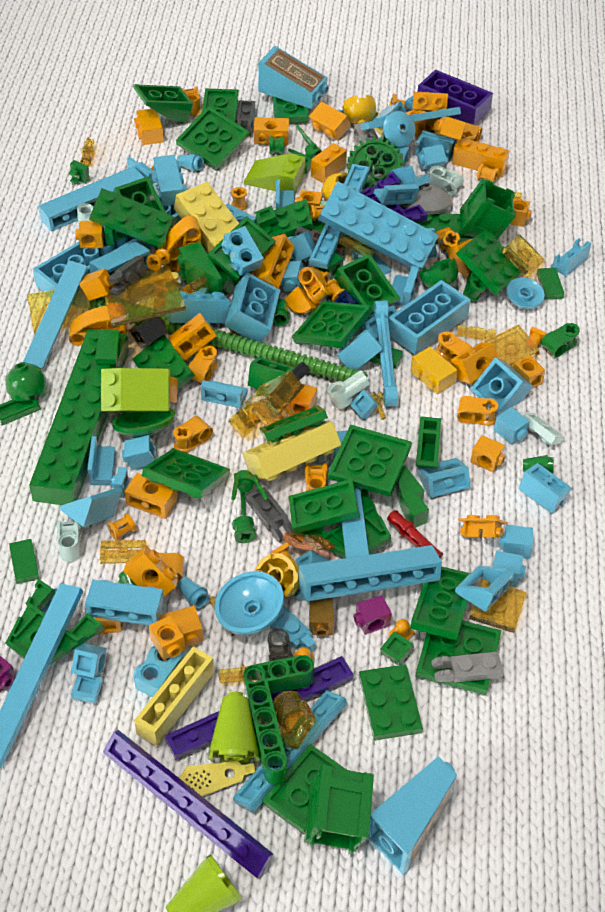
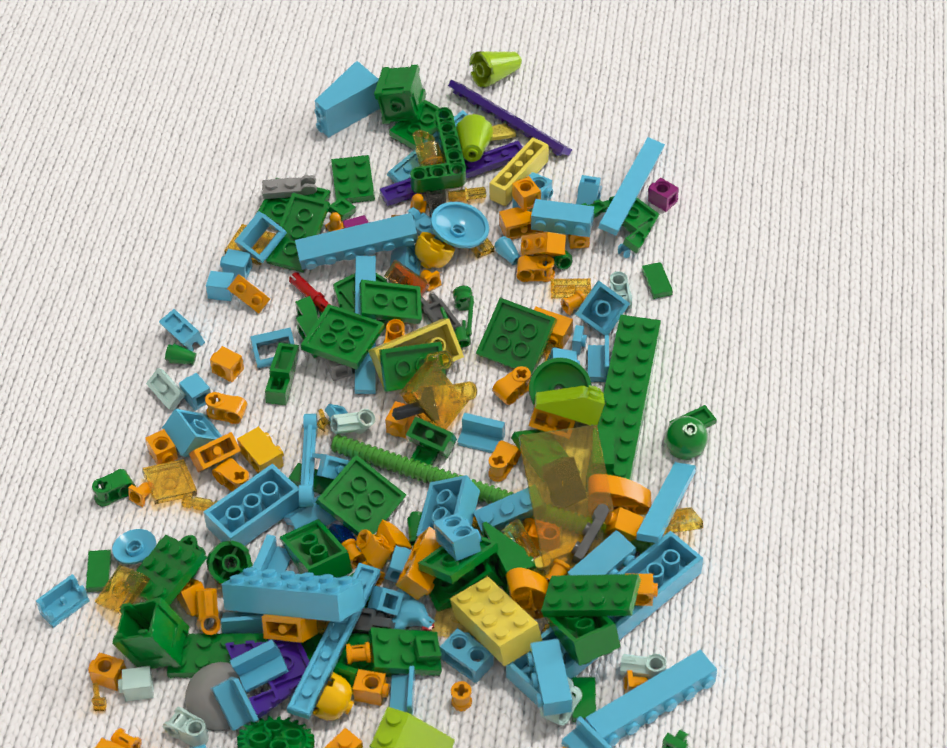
camera: 175 degrees left, 0 degrees up
(192, 336) = (508, 473): light orange brick -> none

